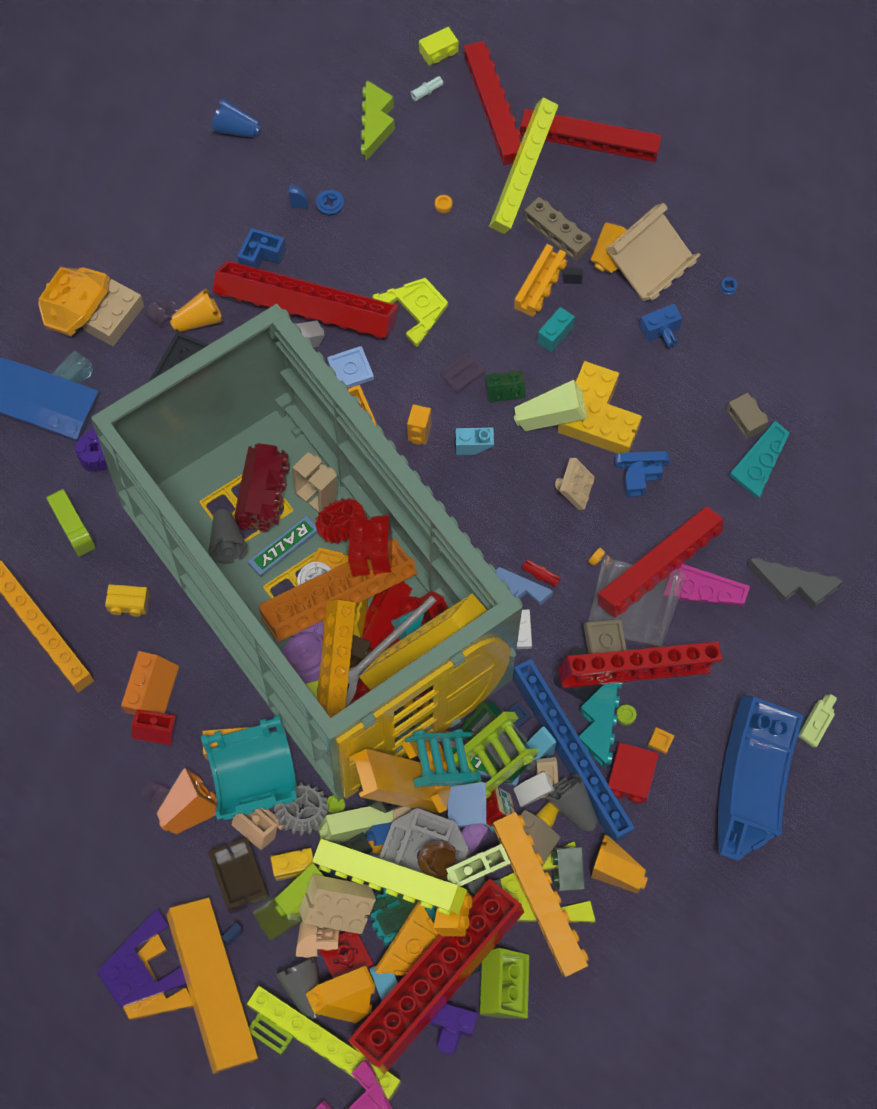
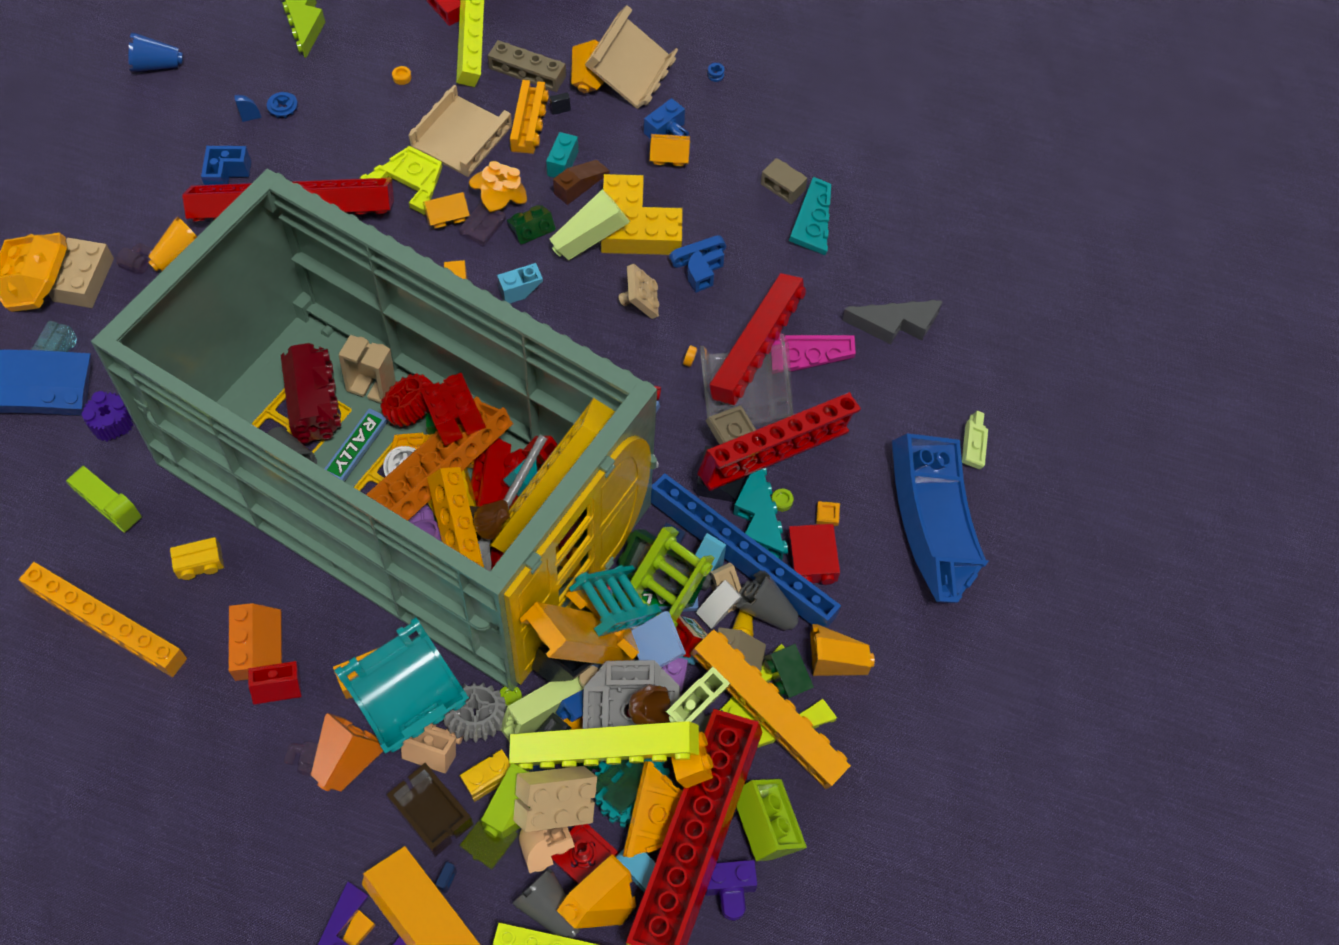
camera: 25 degrees left, 5 degrees down
(364, 655) = (489, 519): none -> reddish brown hair
(435, 350) = (446, 209): none -> light orange brick
(474, 276) = (459, 132): none -> tan panel
(488, 342) = (498, 186): none -> light orange brick
(563, 356) = (578, 179): none -> reddish brown slope
(654, 352) = (669, 149): none -> light orange brick

